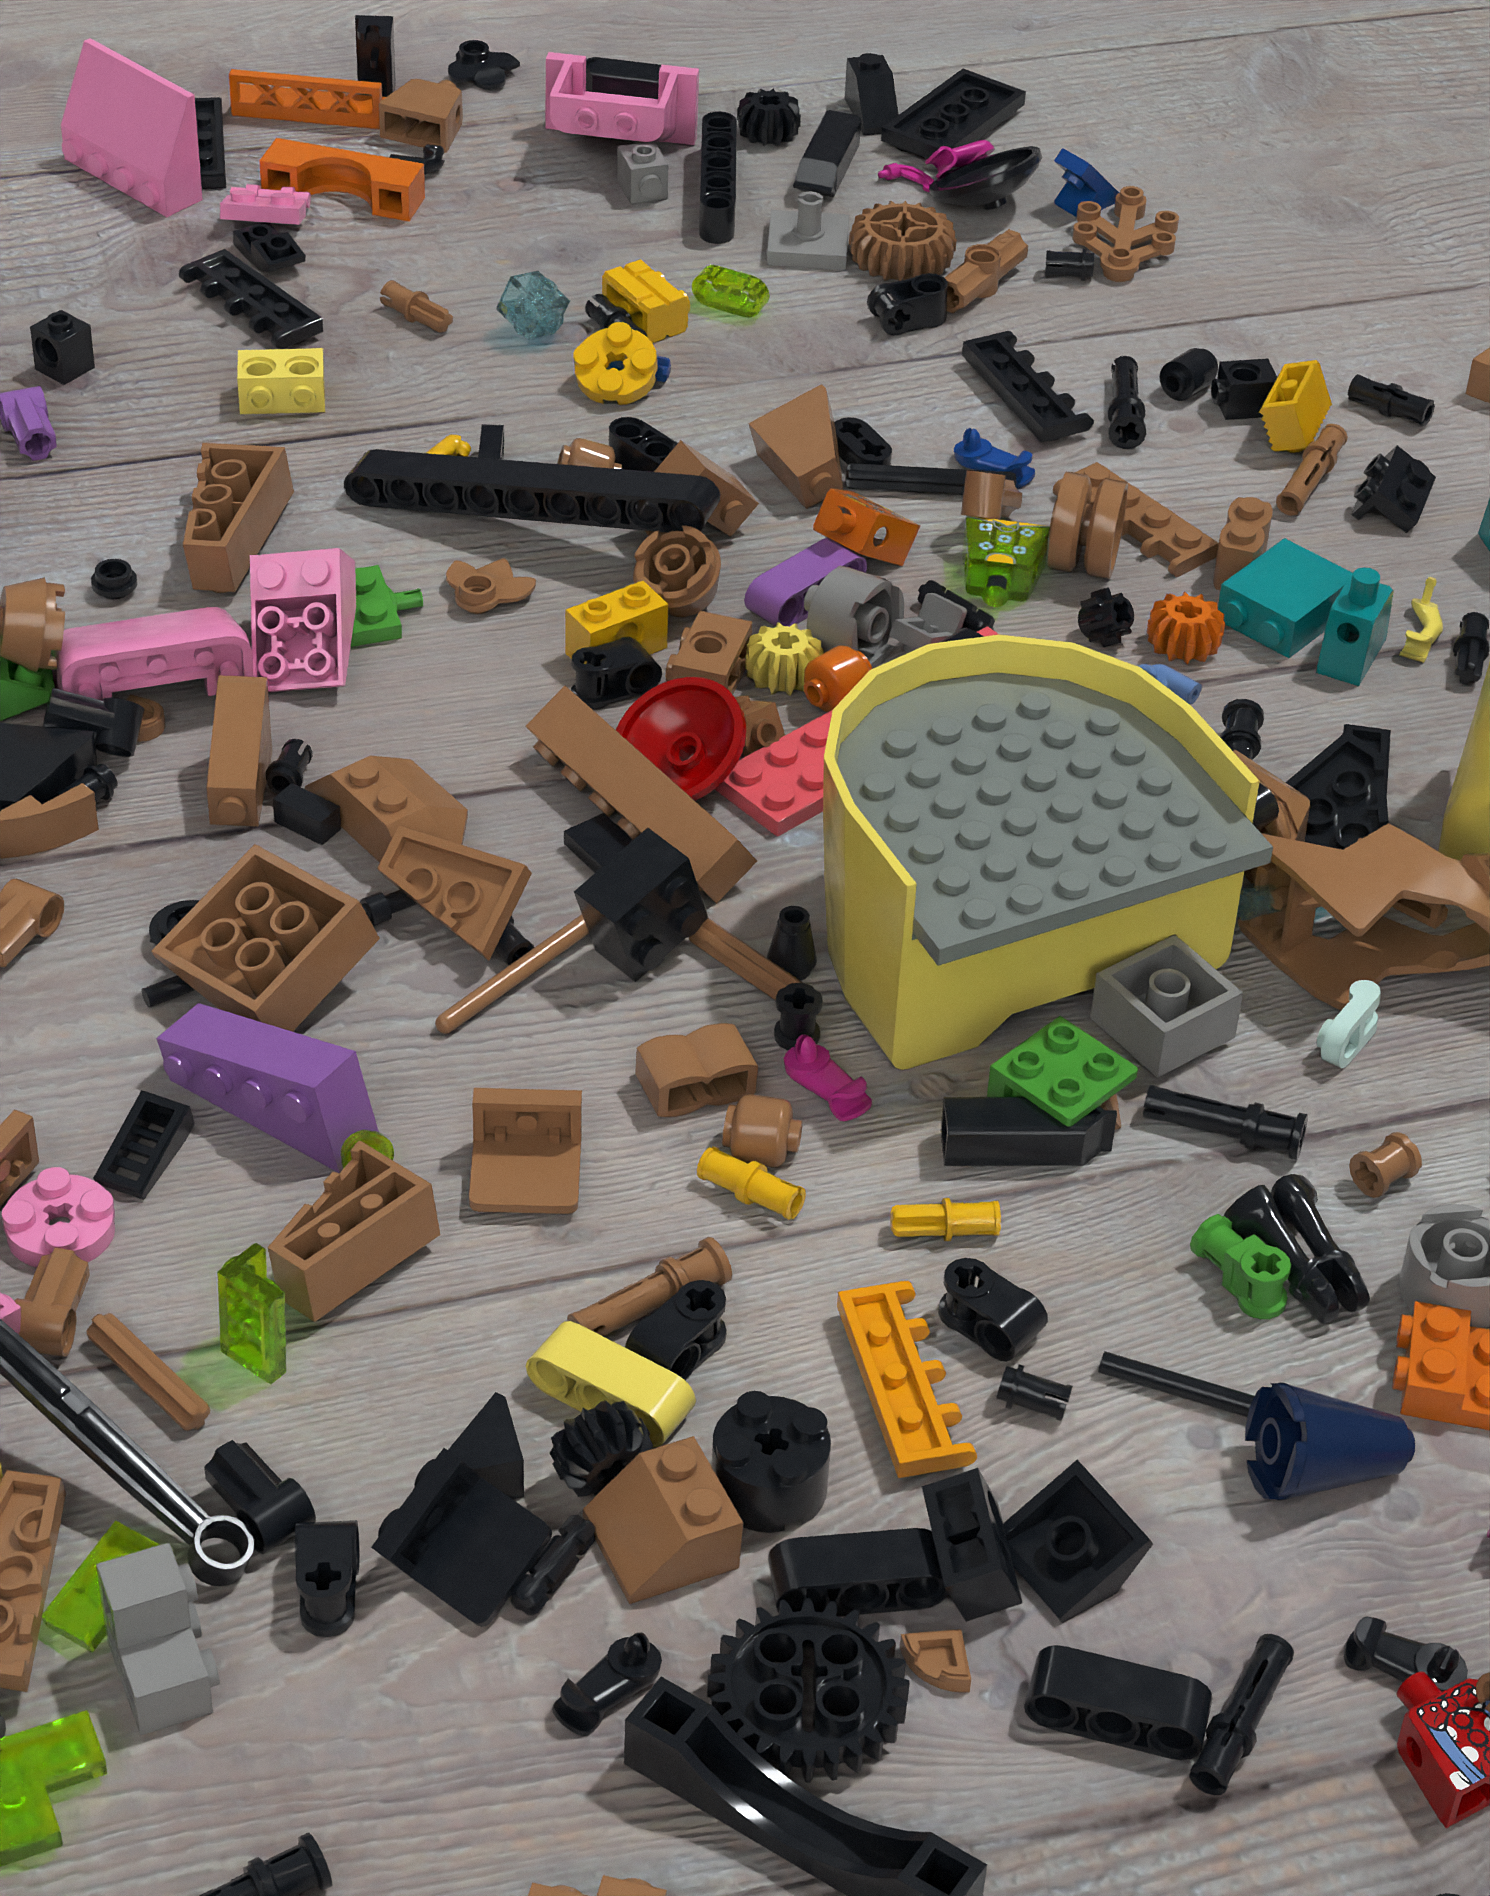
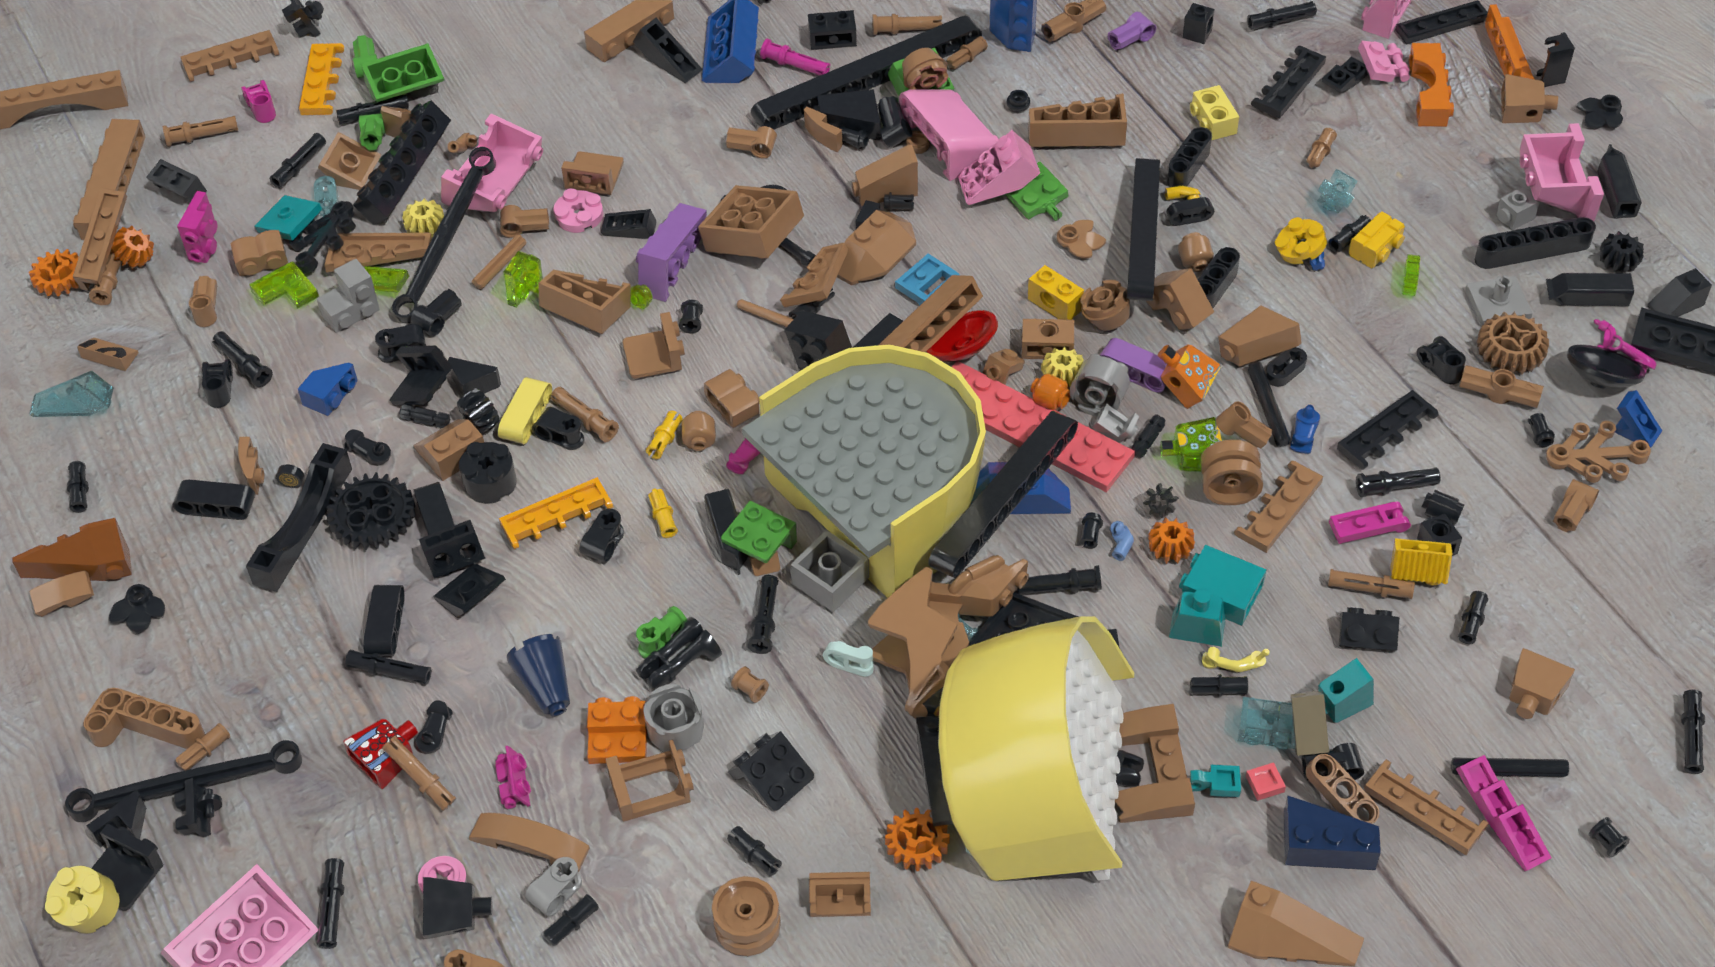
camera: 80 degrees right, 10 degrees up
(91, 276) = (1273, 17): none -> black pin
(366, 422) = (1189, 157): none -> black beam
(414, 1731) = (327, 387): none -> blue slope
(431, 159) = (1472, 114): black arm -> none
(452, 1089) = (690, 318): none -> black bush
(498, 780) = (922, 276): none -> dark azure plate
(615, 671) = (1021, 300): black piece -> none
(655, 1833) = (290, 476): none -> black tile
(938, 1658) = (402, 557): medium nougat tile -> none
(1030, 1392) = (559, 559): black pin -> none
(1175, 1383) = (579, 634): black bar -> none
(1197, 445) = (1369, 522): none -> dark pink plate
(1210, 265) = (1575, 503): none -> medium nougat piece
(1242, 537) = (1271, 553): medium nougat brick -> none

